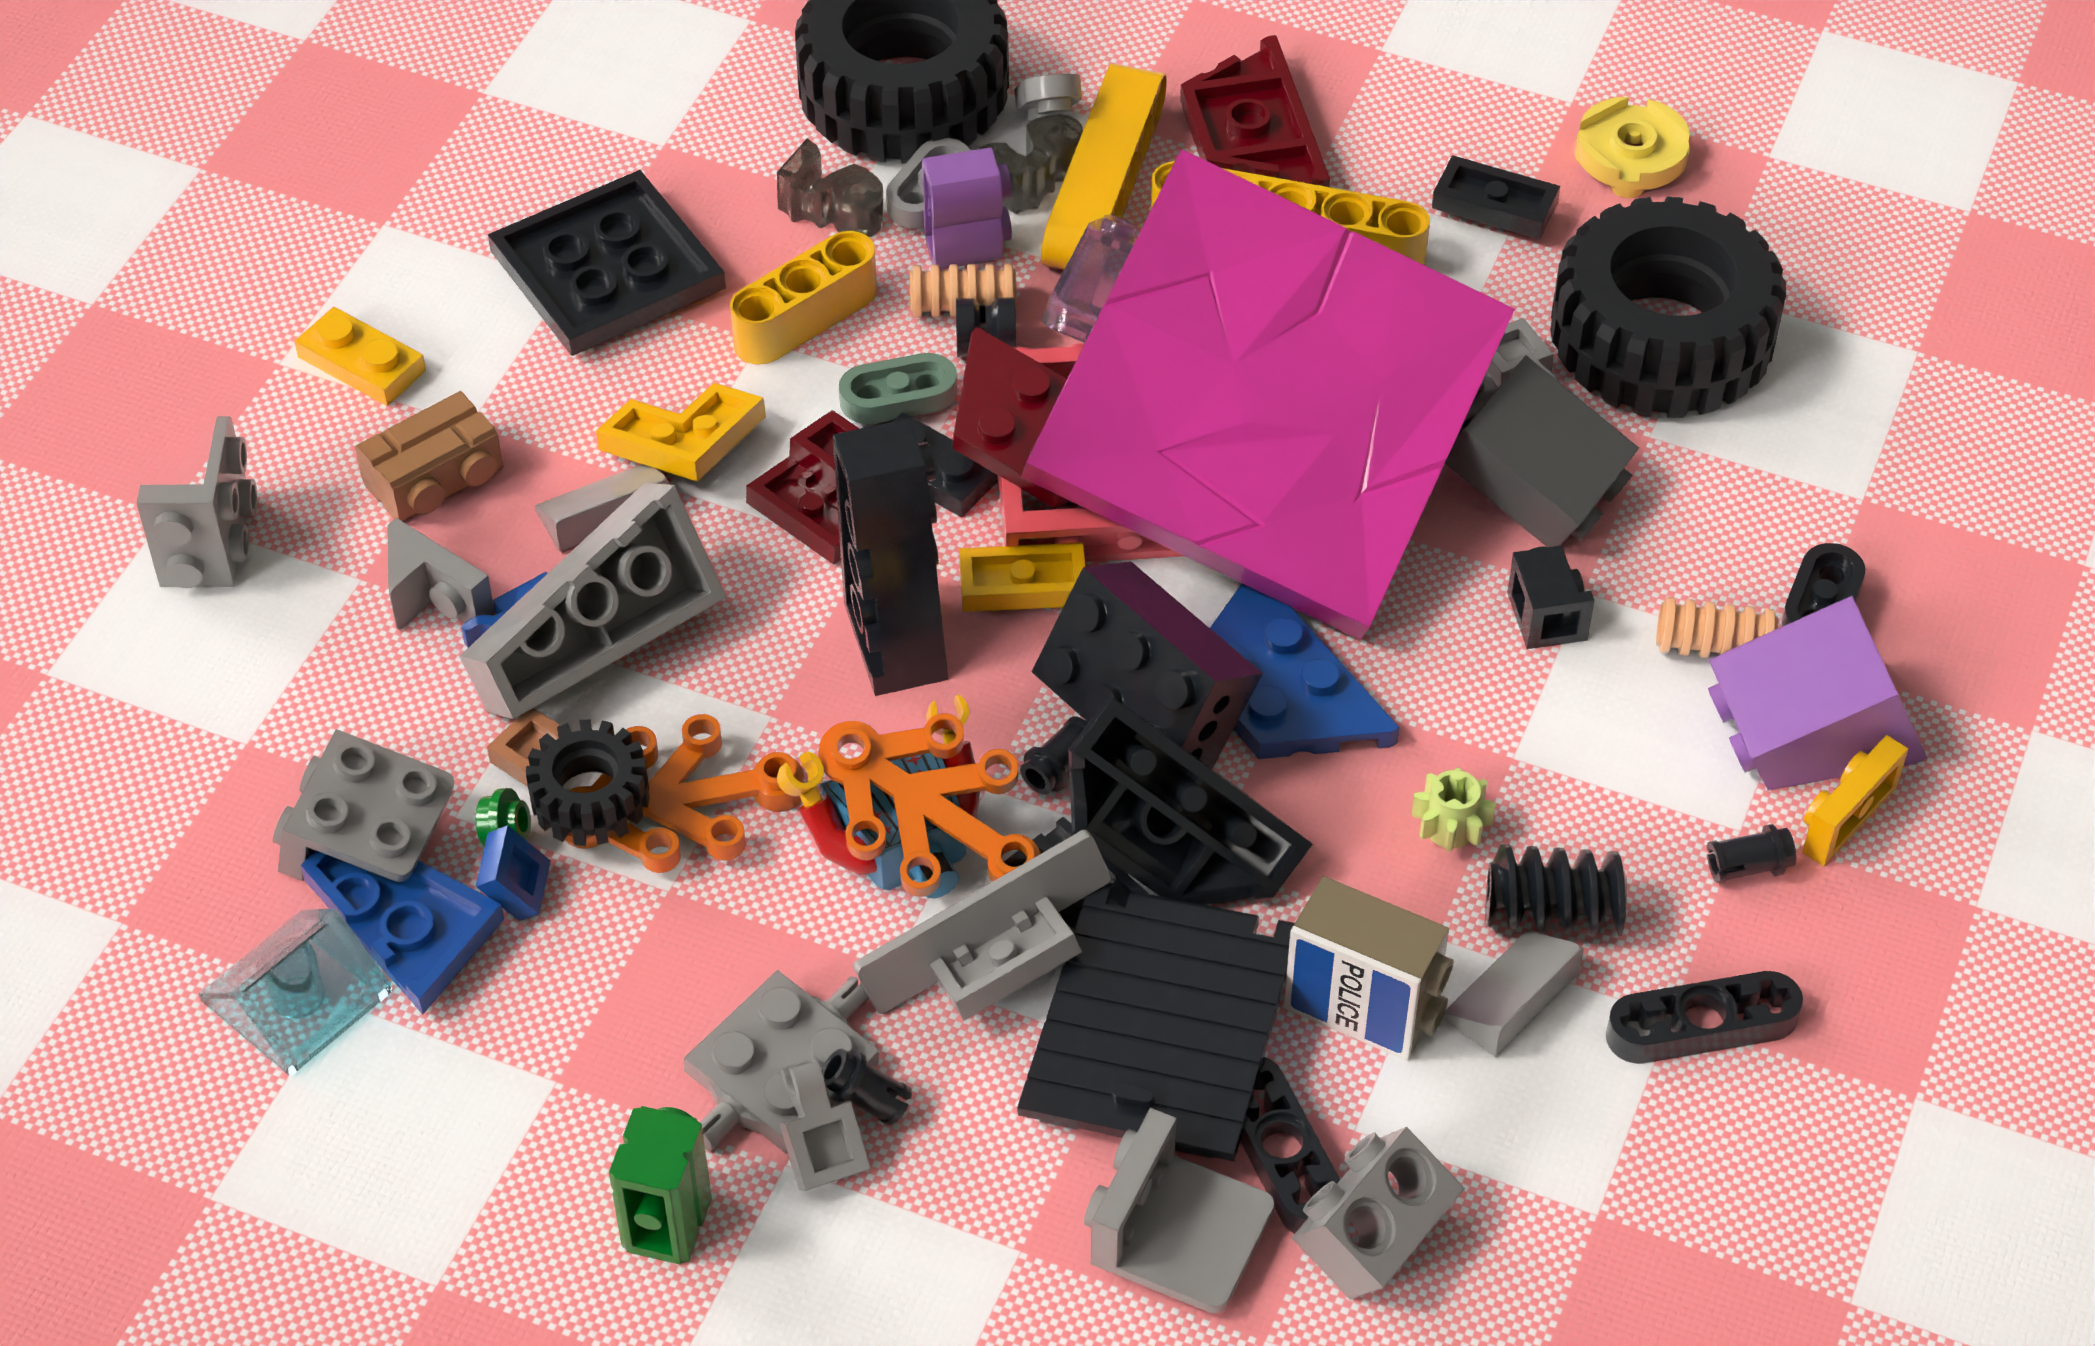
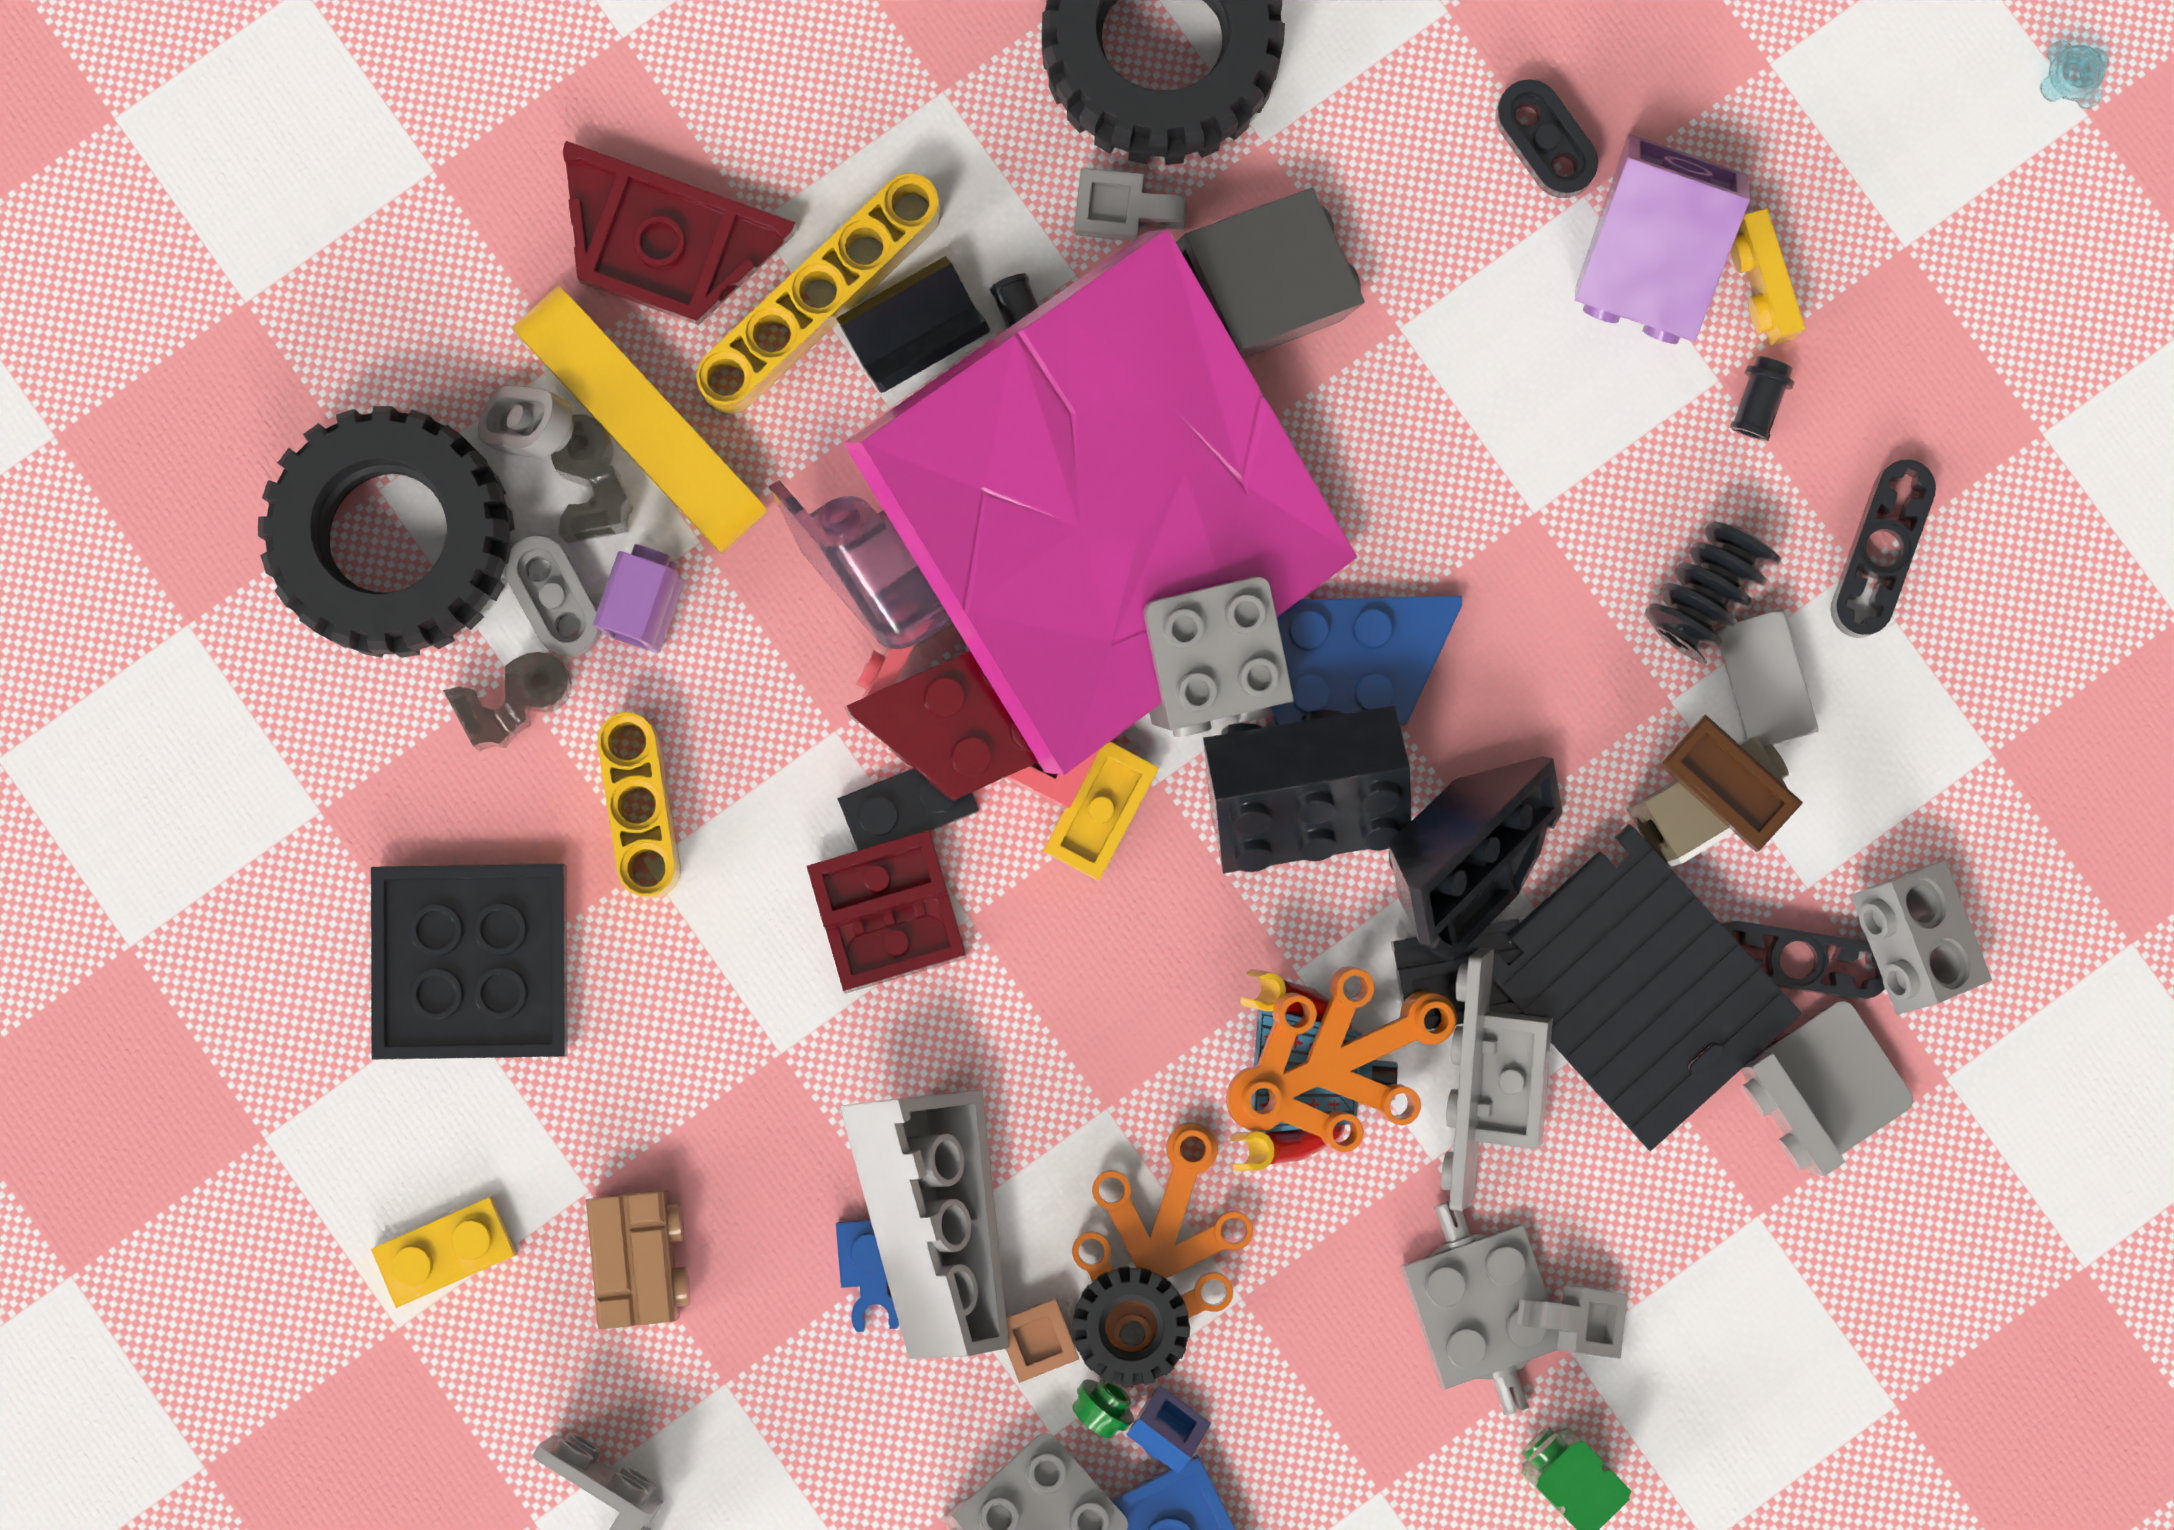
camera: 65 degrees left, 35 degrees up
(429, 573) = (769, 1339): light grey slope -> none
(580, 511) = (775, 1126): light grey slope -> none
(683, 442) = (759, 1016): yellow plate -> none
(853, 1079) = (1555, 1270): black pin -> none
(890, 554) = (1084, 947): black wedge -> none
(898, 385) = (805, 785): sand green plate -> none
(938, 289) = (719, 652): light nougat piece -> none
(998, 316) = (789, 648): black wheel -> none
(1047, 766) = (1314, 899): black pin -> none
(1204, 536) = (1216, 656): none -> light grey bracket
(1390, 922) = (1730, 783): none -> reddish brown tile
(1453, 809) = (1565, 625): yellowish green gear -> none
(1496, 197) = (906, 78): black plate -> none
(1548, 598) = (1404, 374): black brick -> none
(1709, 628) = (1528, 257): light nougat piece -> none

